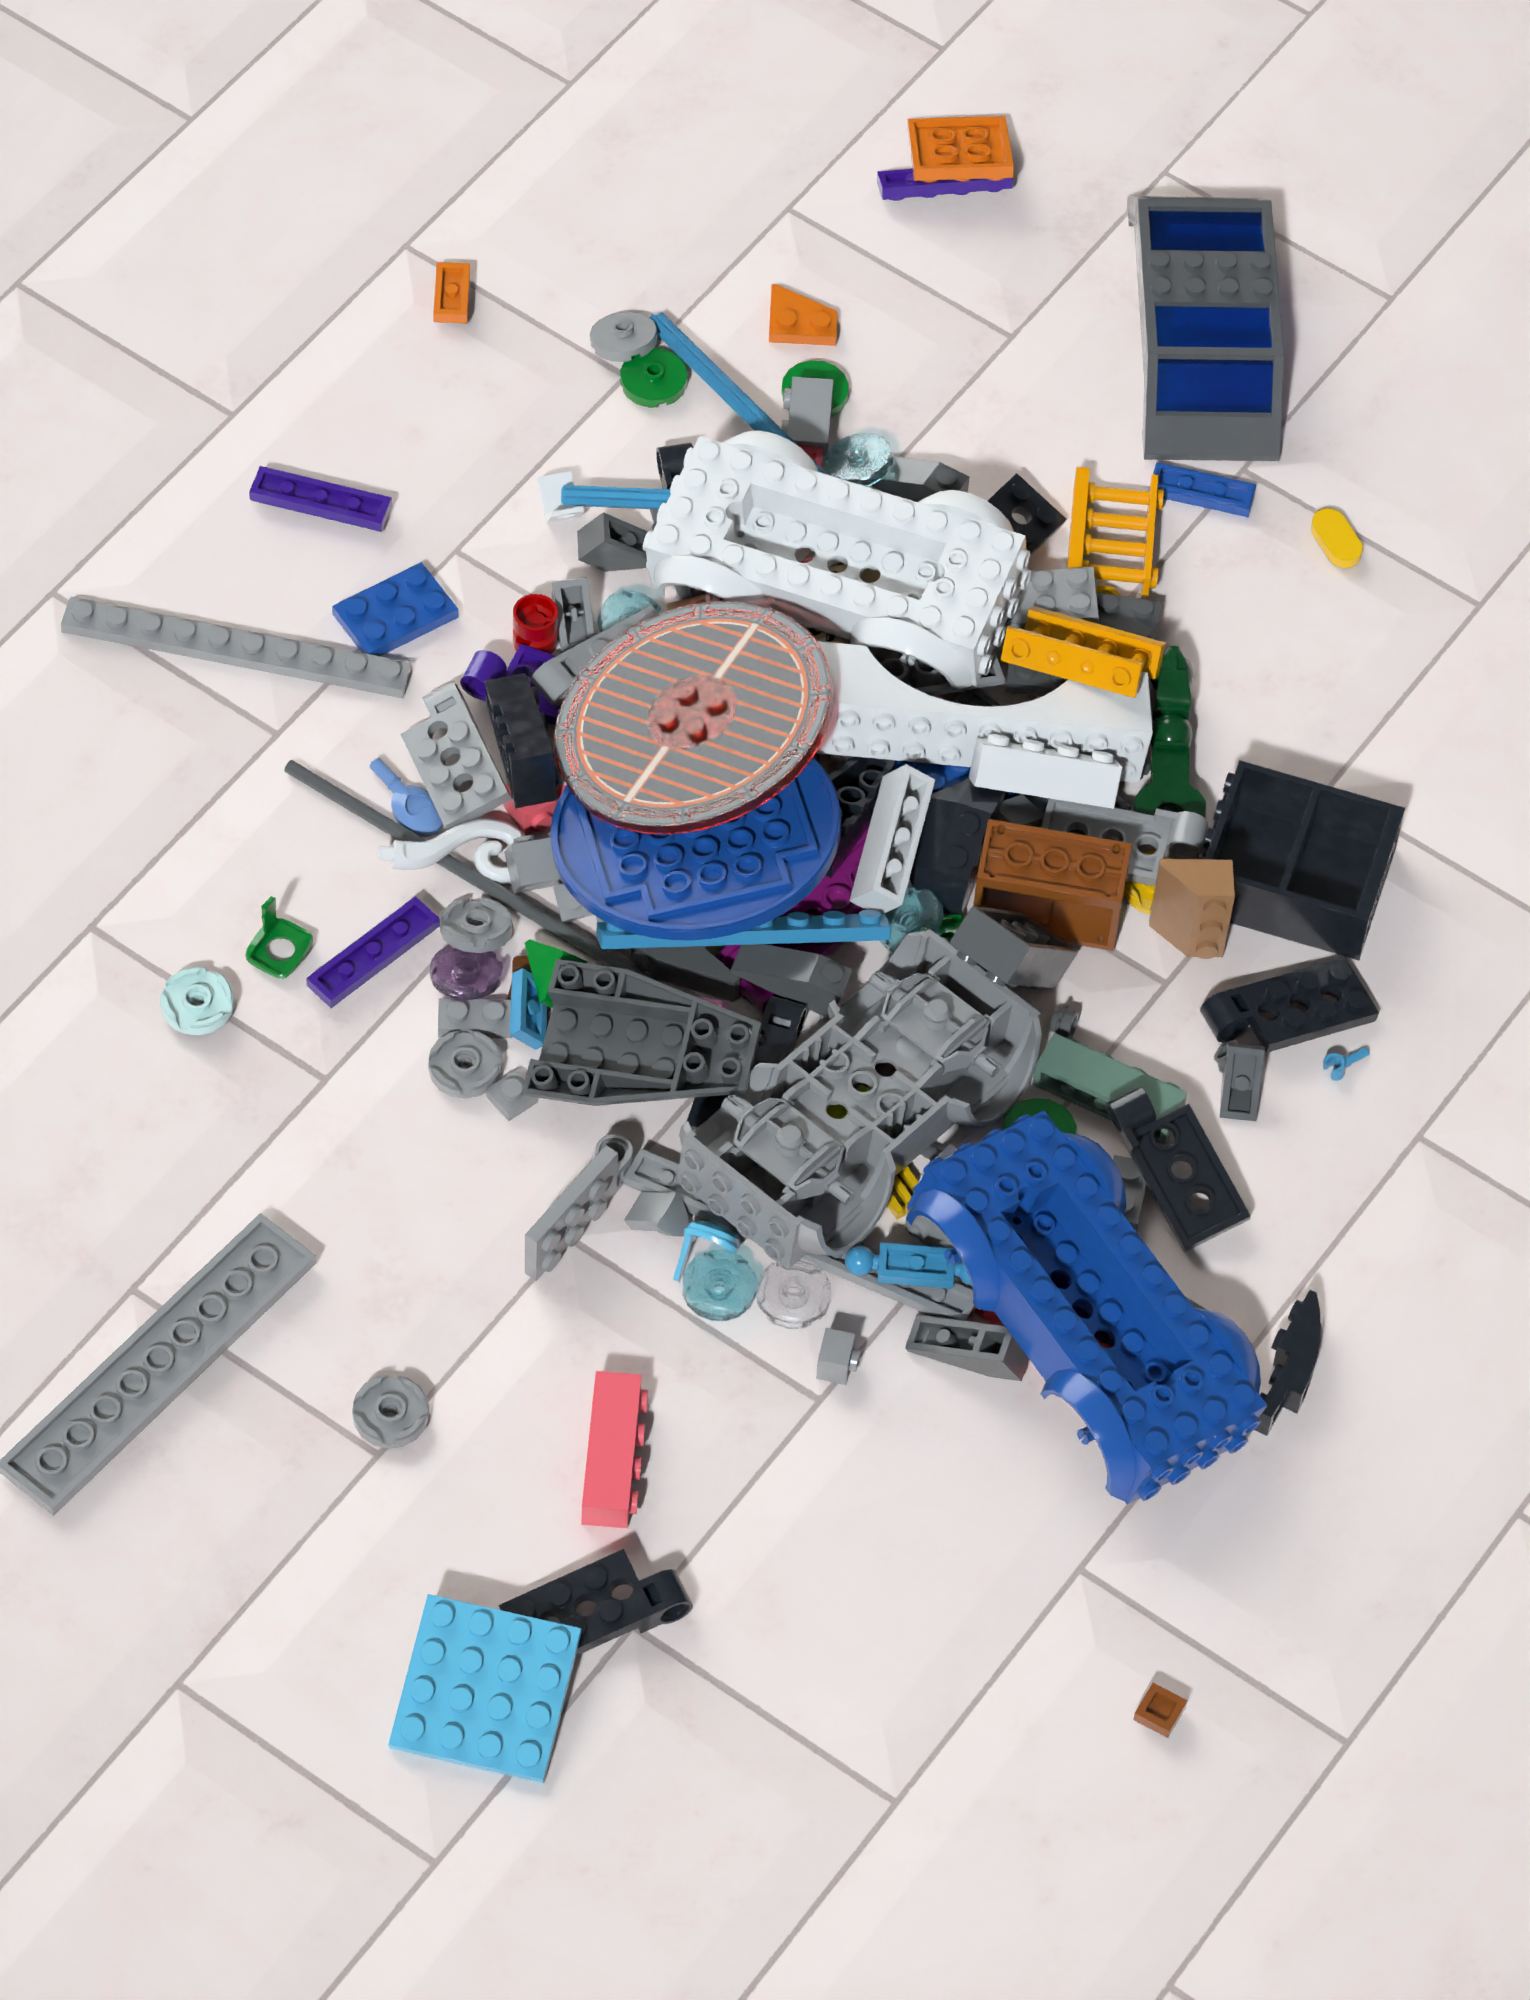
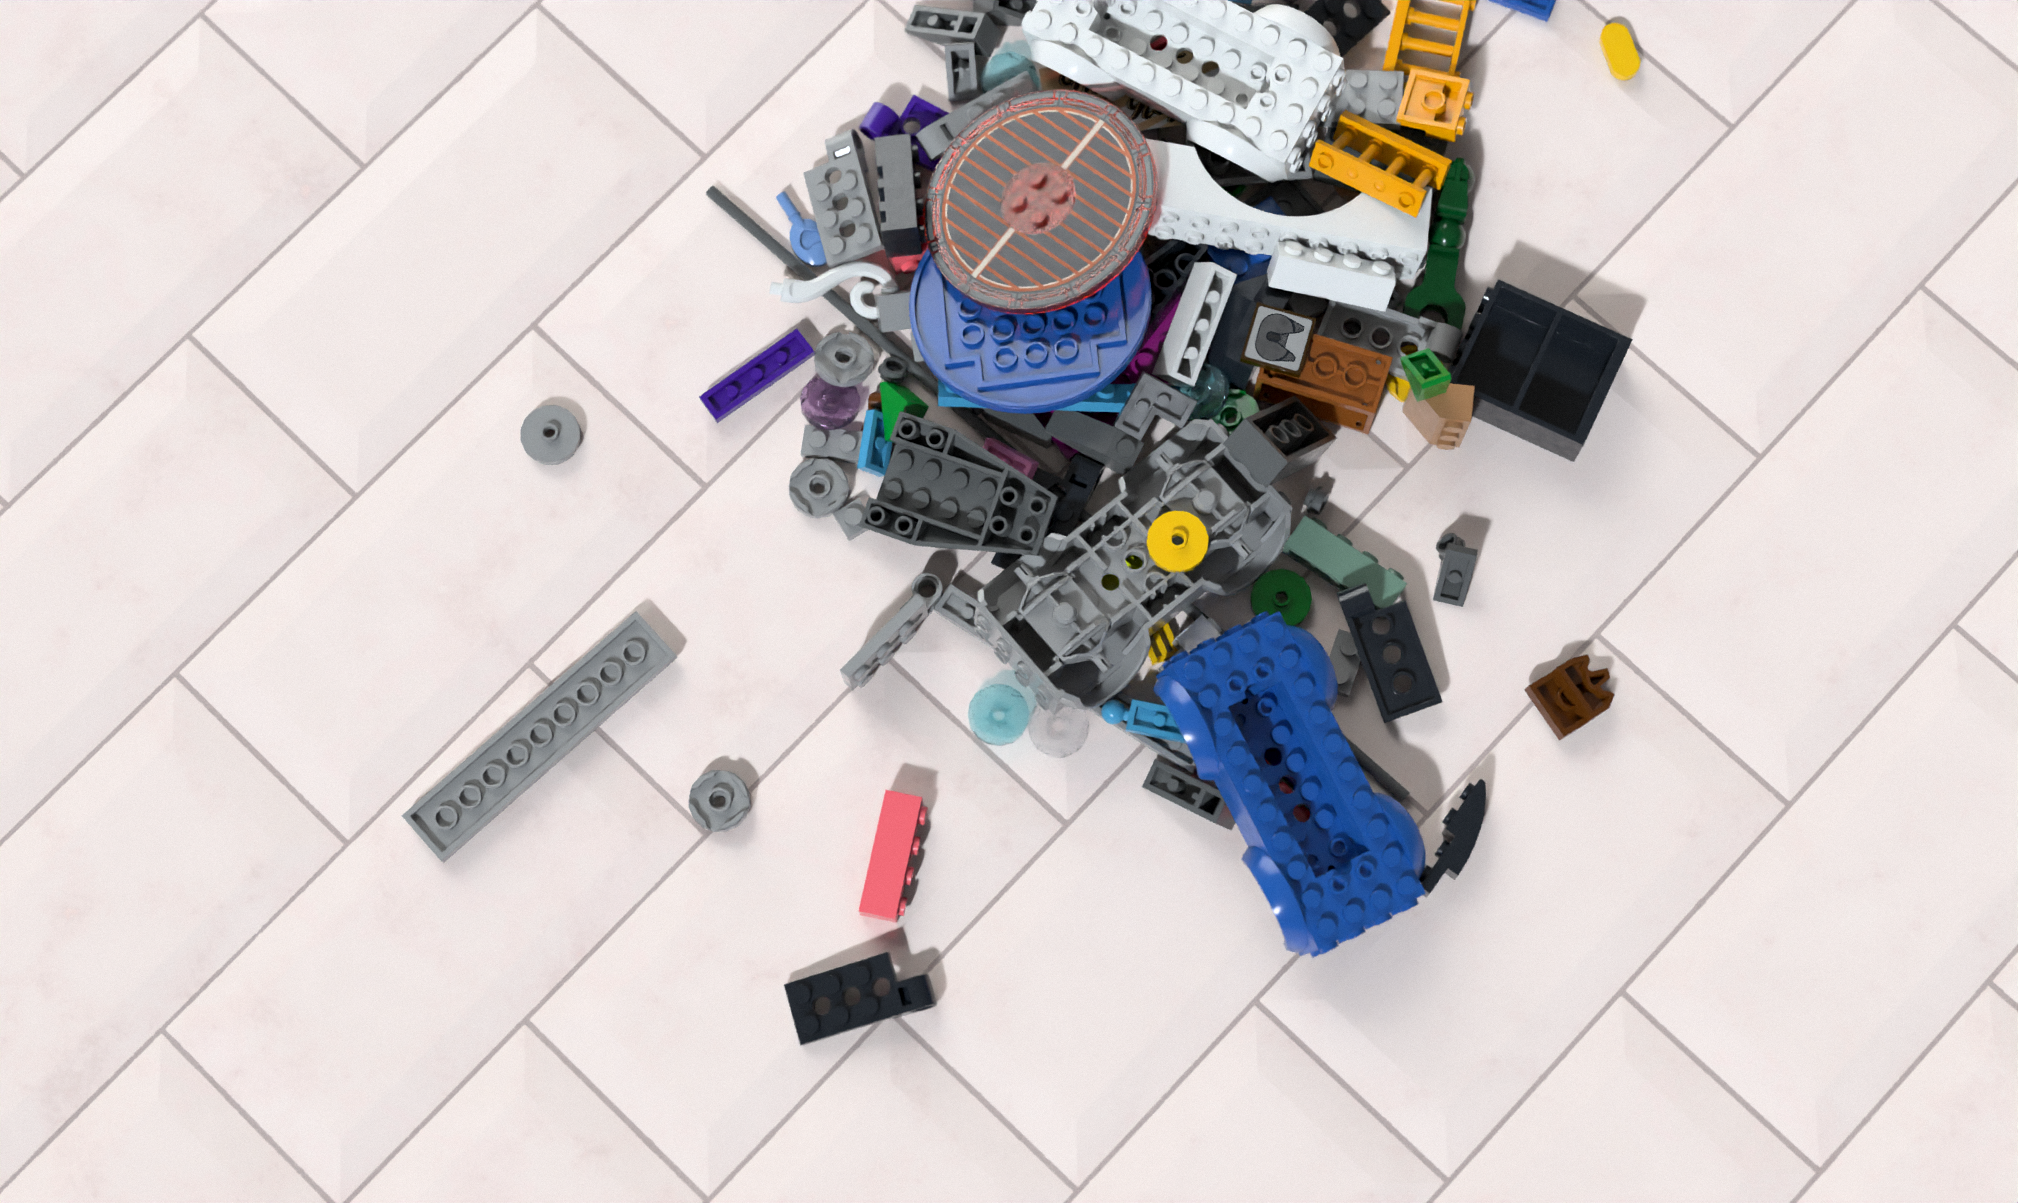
camera: 15 degrees right, 20 degrees up
(130, 1053) = (556, 448): none -> light grey plate
(192, 987) = (604, 393): light aqua plate -> none
(236, 647) = (680, 72): light grey plate -> none
(273, 929) = (675, 345): green piece -> none
(395, 611) = (815, 50): blue plate -> none
(485, 1688) = (762, 1060): medium azure plate -> none
(535, 623) = (928, 78): red wheel -> none
(537, 571) = (954, 26): none -> dark grey slope
(537, 930) = (893, 370): none -> dark grey plate
(658, 1213) = (958, 645): light grey tile -> none
(709, 1231) = (982, 671): medium azure piece -> none
(837, 1356) = (1084, 792): light grey plate -> none
(854, 917) = (1149, 399): none -> flat silver plate
(907, 1070) = (1177, 557): none -> yellow plate
(995, 834) = (1278, 340): none -> tile
(1136, 594) = (1435, 104): none -> light orange plate
(1160, 1710) = (1300, 1139): dark orange plate -> none
(1176, 850) = (1425, 374): none -> green slope
(1235, 1009) = (1463, 504): black hinge -> none
(1343, 1062) = (1546, 559): dark azure hand -> none
(1400, 1198) = (1571, 695): none -> reddish brown plate

